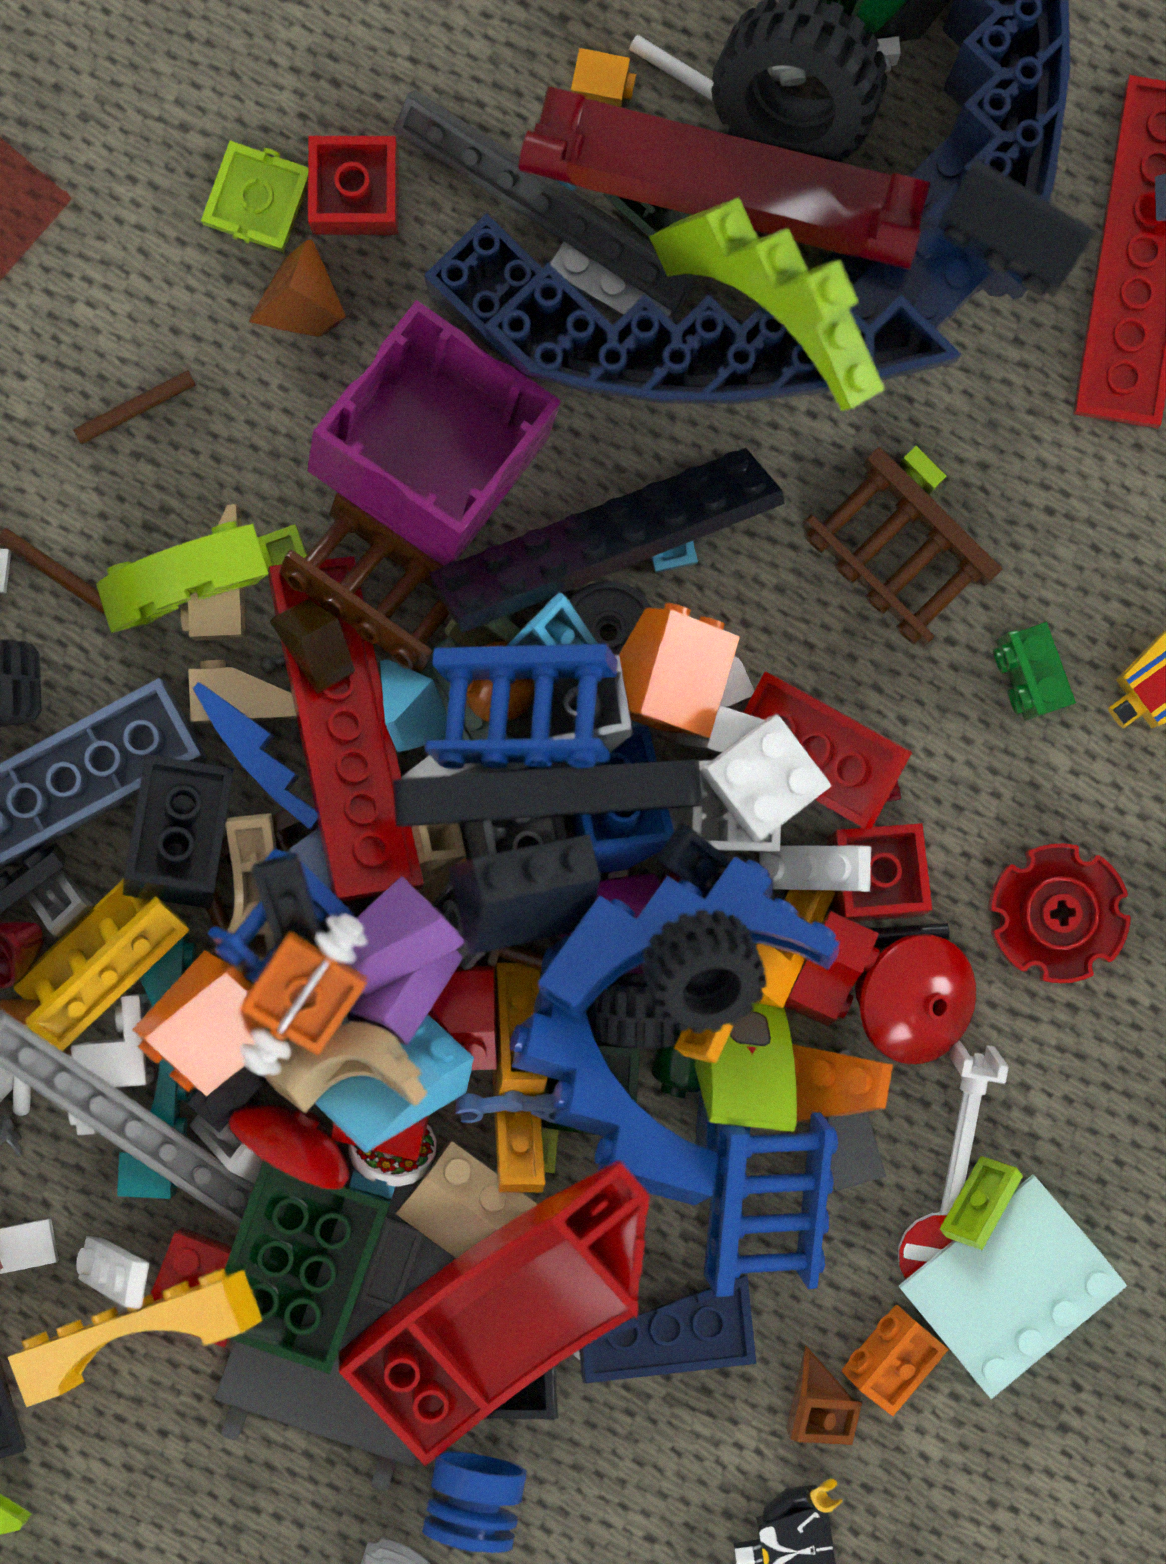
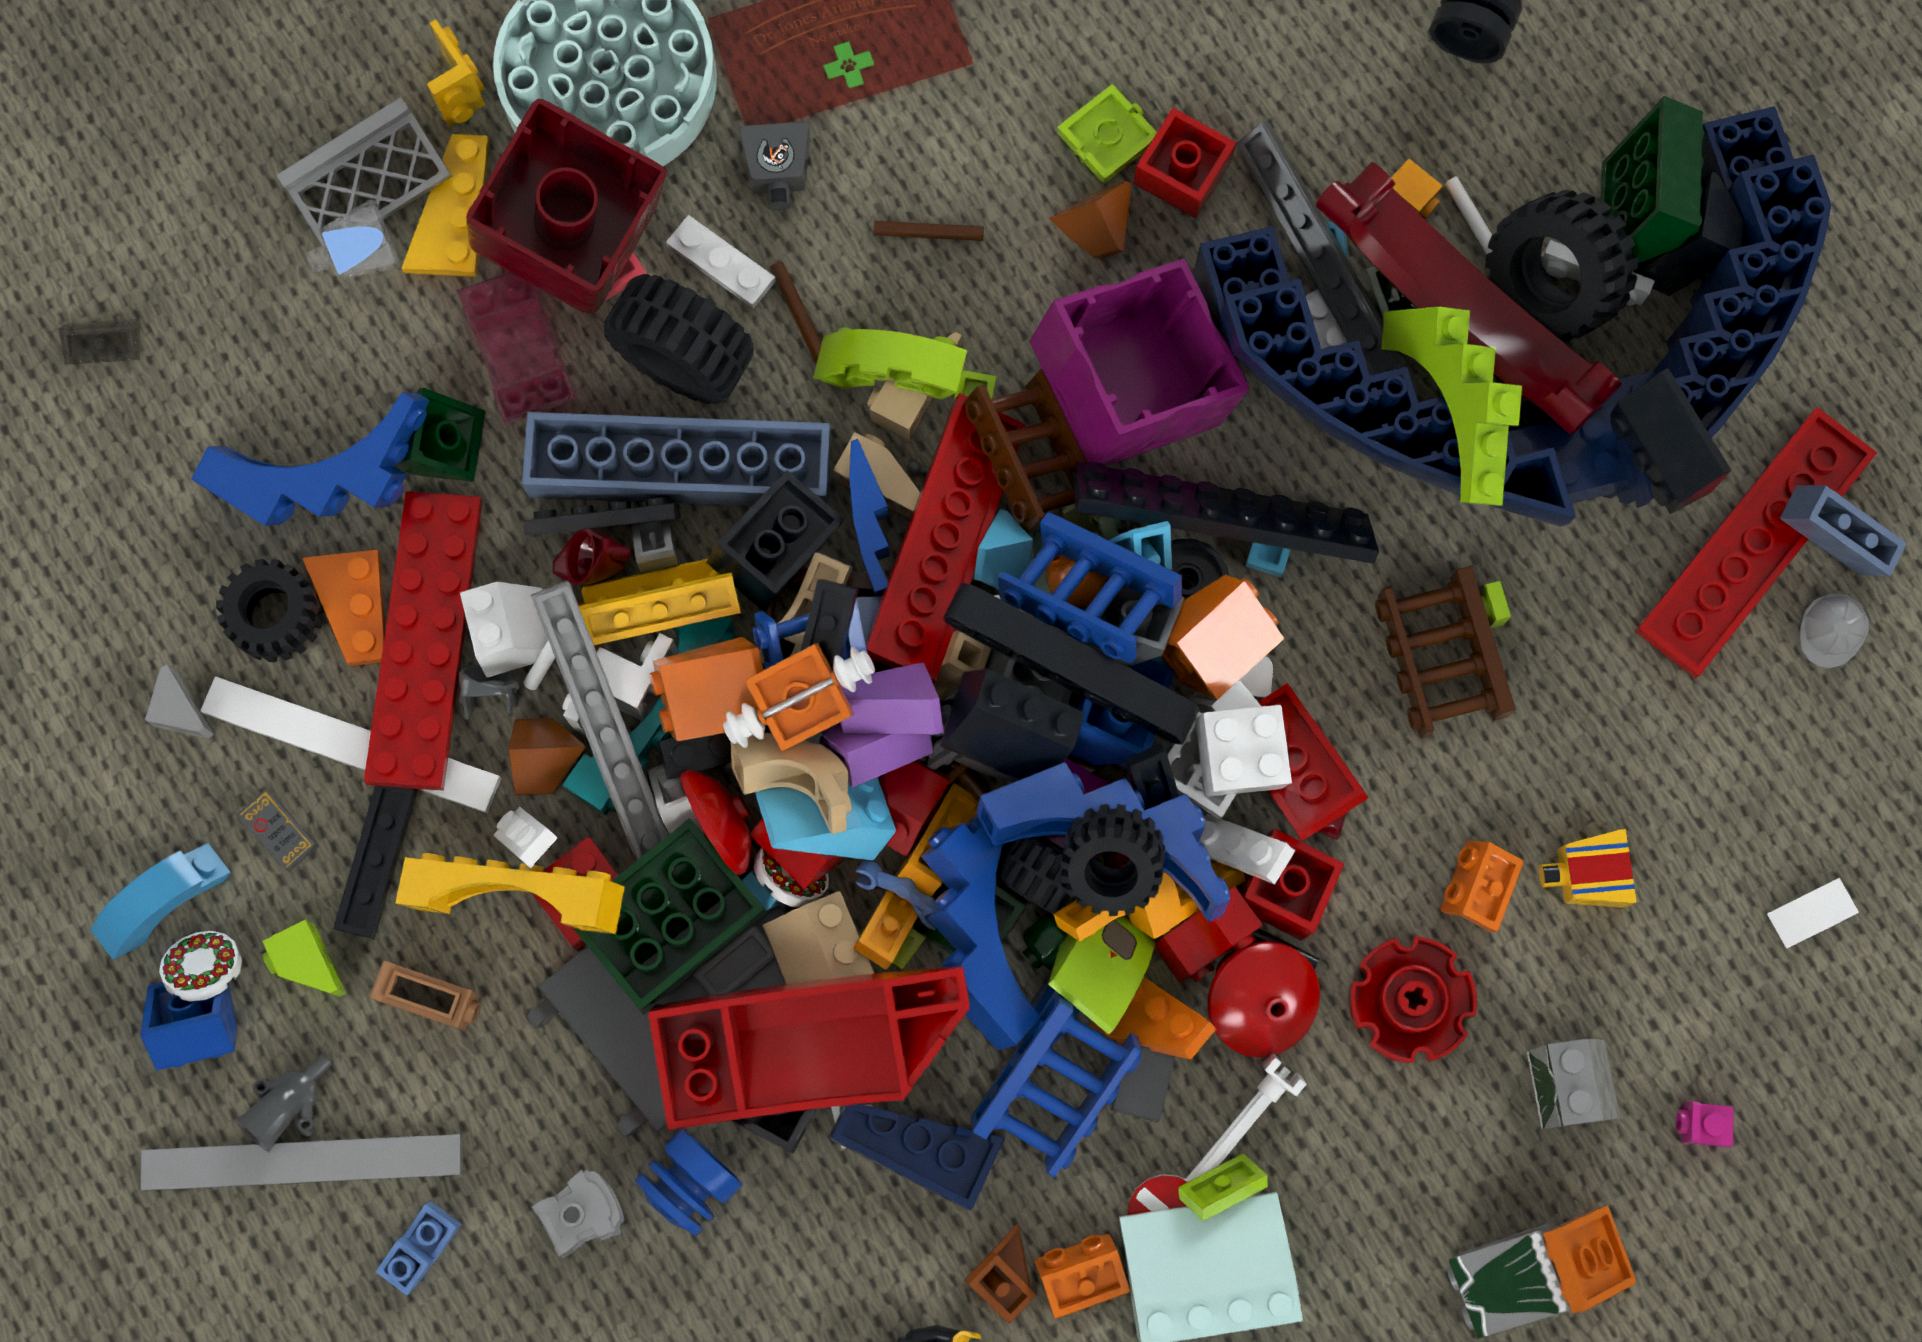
camera: 30 degrees right, 10 degrees down
(75, 1174) = (541, 755): none -> dark orange slope
(156, 1464) = (463, 1010): none -> medium nougat window
(315, 644) = (960, 465): dark brown slope -> none
(1034, 671) = (1496, 803): green bracket -> none
(1063, 759) = (1482, 884): none -> orange bracket

